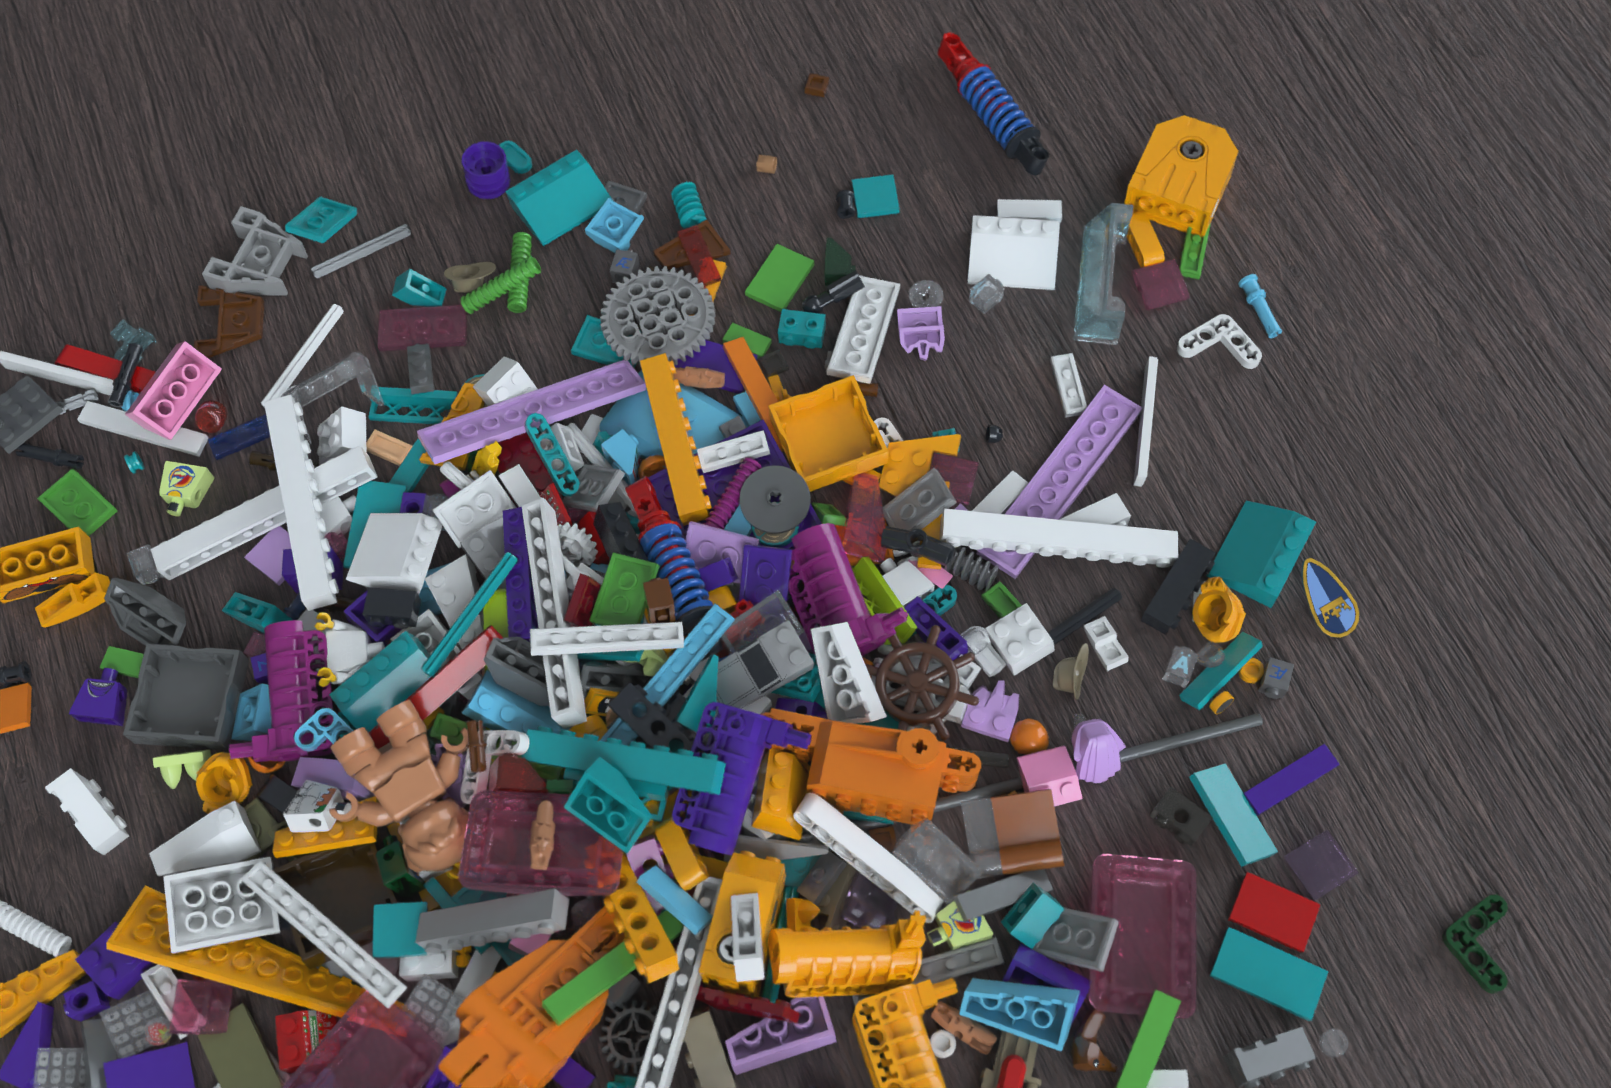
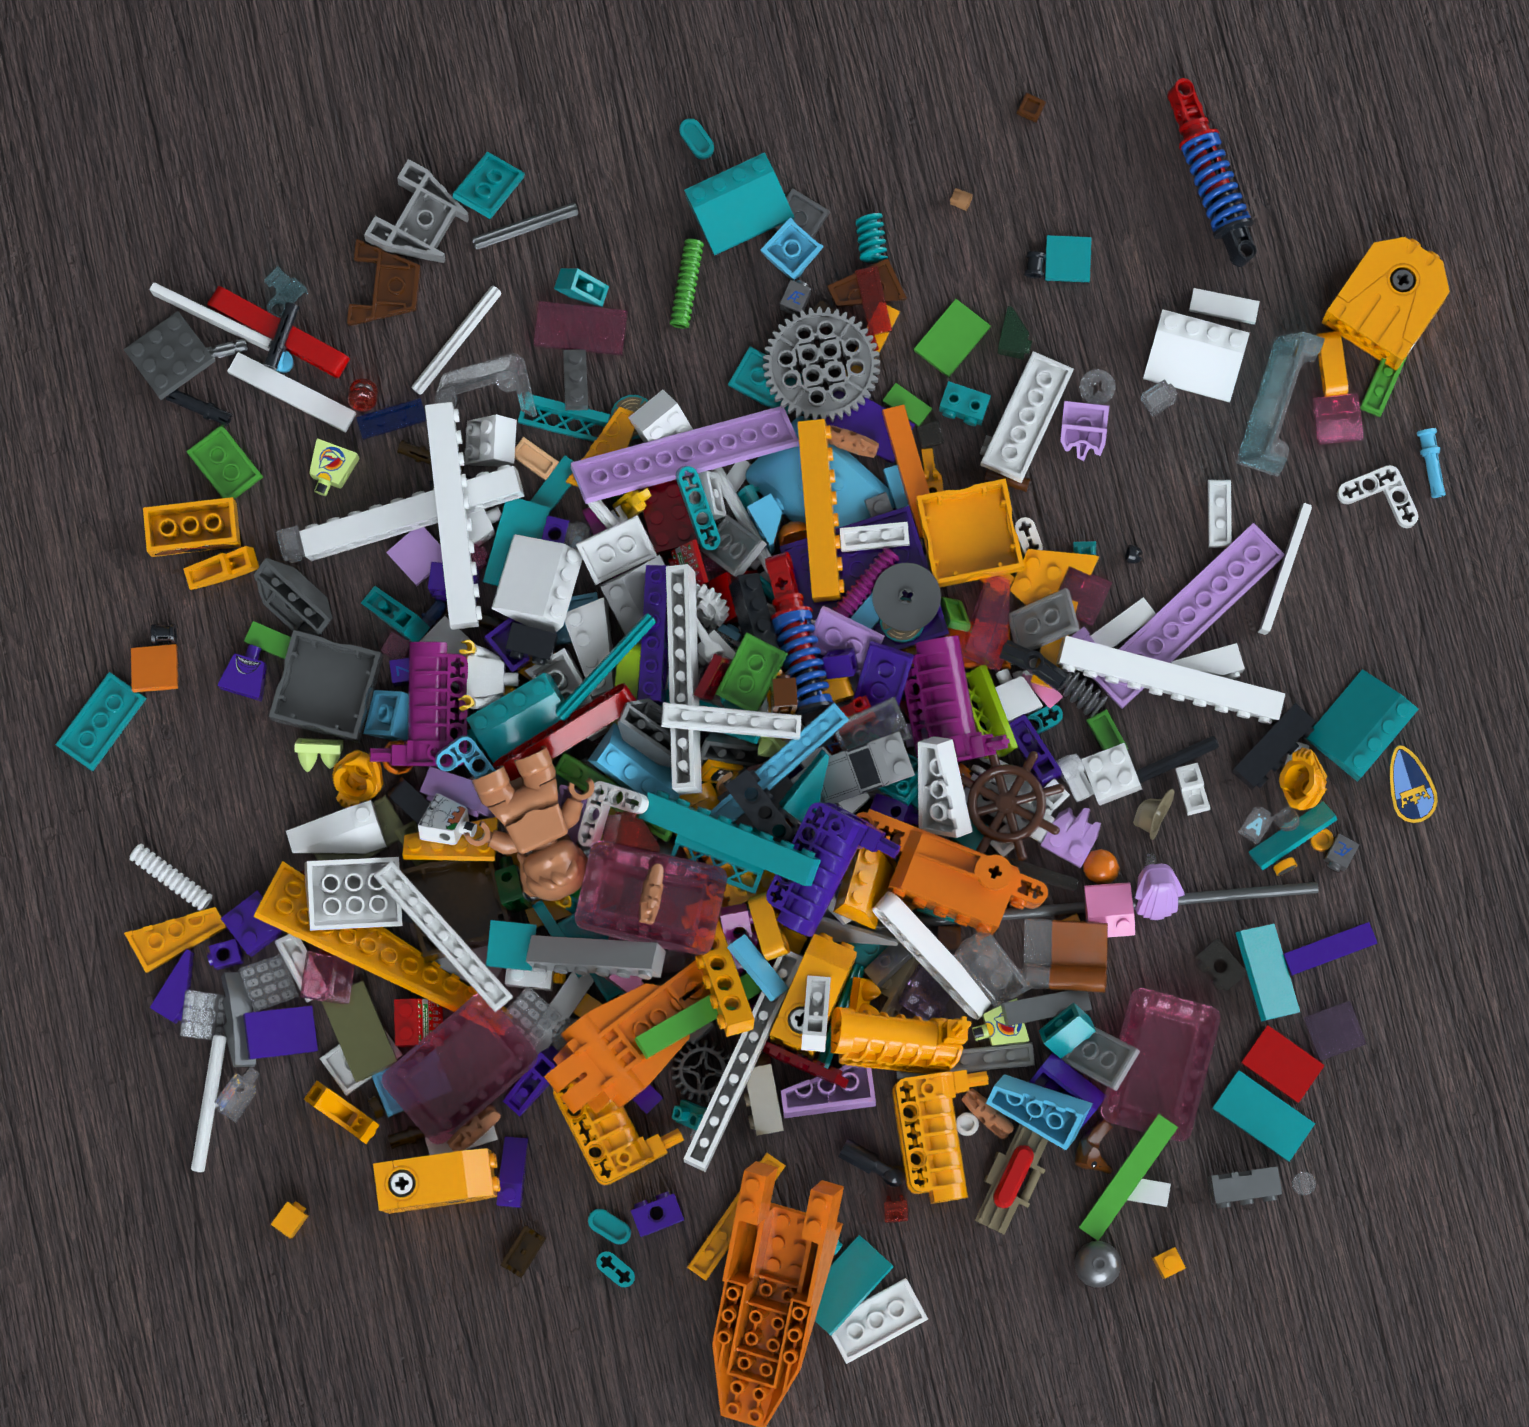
camera: 10 degrees right, 15 degrees up
(89, 810) = (234, 783): white wedge -> none
(134, 462) = (283, 430): teal bush -> none
(157, 1031) = (289, 992): clear tile -> none
(173, 391) = (329, 364): bright pink slope -> none
(469, 277) = (636, 279): dark tan piece -> none
(476, 746) = (600, 798): reddish brown axle -> none
(486, 170) = (663, 146): dark purple wheel -> none
(500, 285) = (667, 301): bright green piece -> none
(519, 486) = (663, 537): white tile -> none
(560, 786) = (672, 850): dark green tile -> none
(609, 805) = (713, 878): teal slope -> none
(835, 293) = (1005, 370): black piece -> none
(1469, 936) = (1448, 1114): dark green beam -> none

